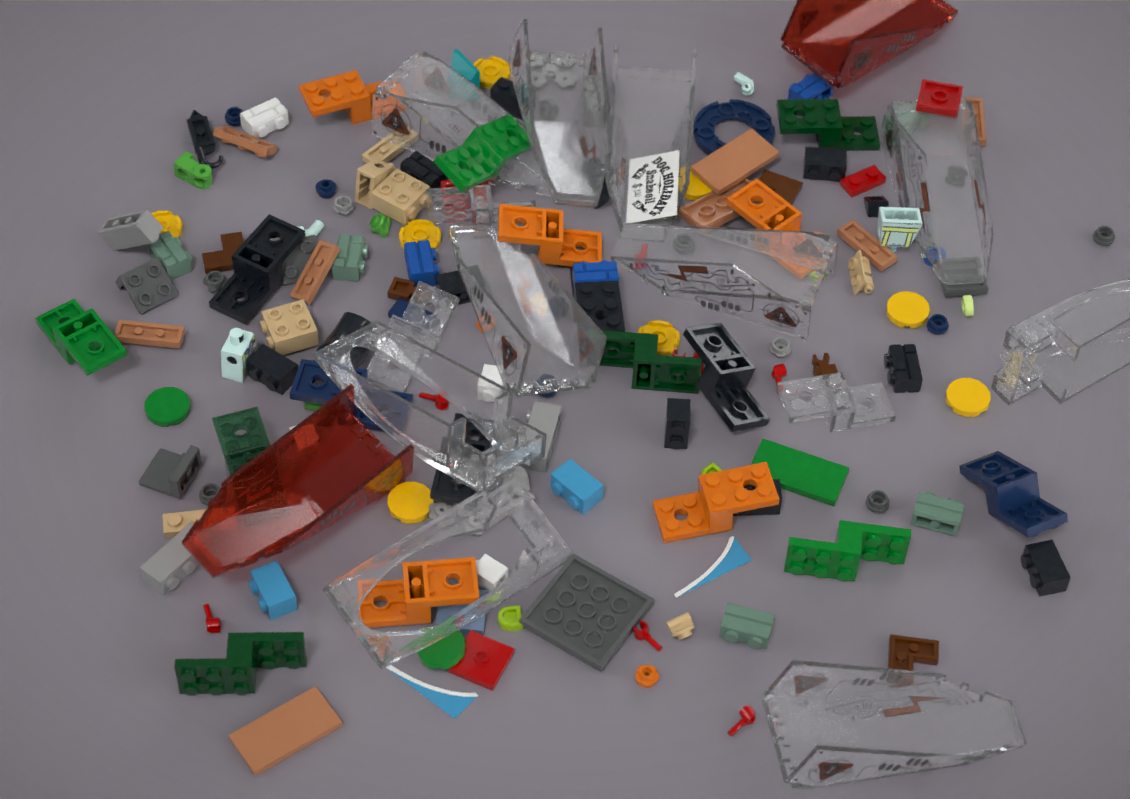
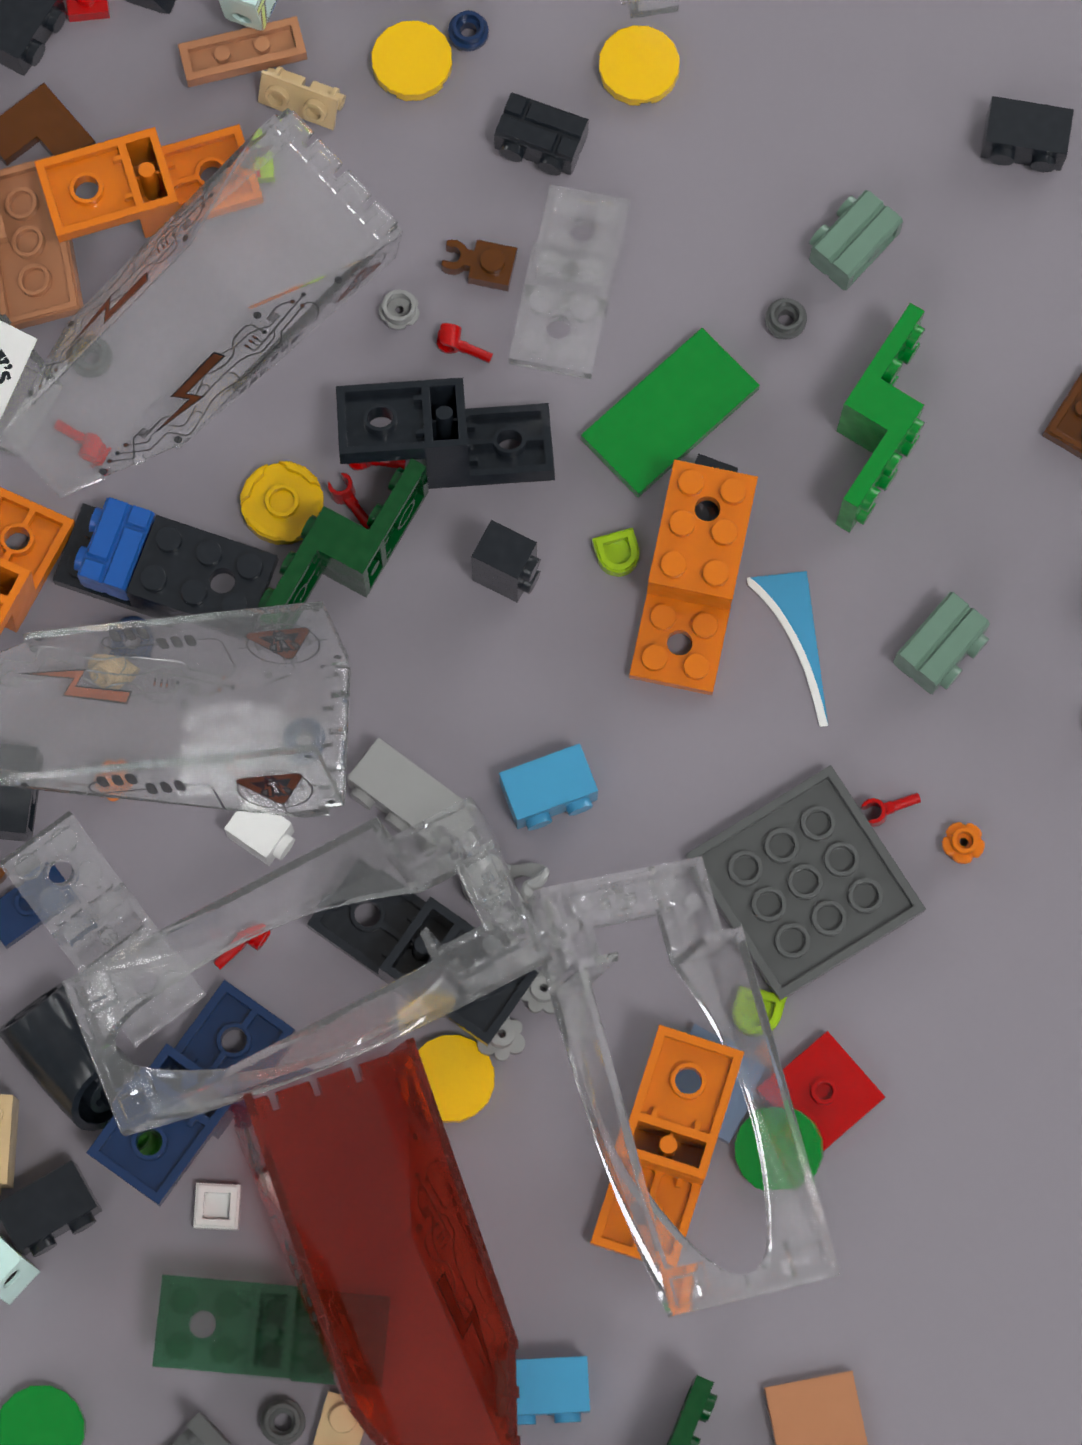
camera: 65 degrees left, 25 degrees up
(449, 701) = (873, 1177): dark azure sticker -> none
(490, 573) = (668, 1006): white brick -> none
(680, 626) = (901, 746): tan plate -> none
(1013, 494) = (880, 105): dark blue bracket -> none

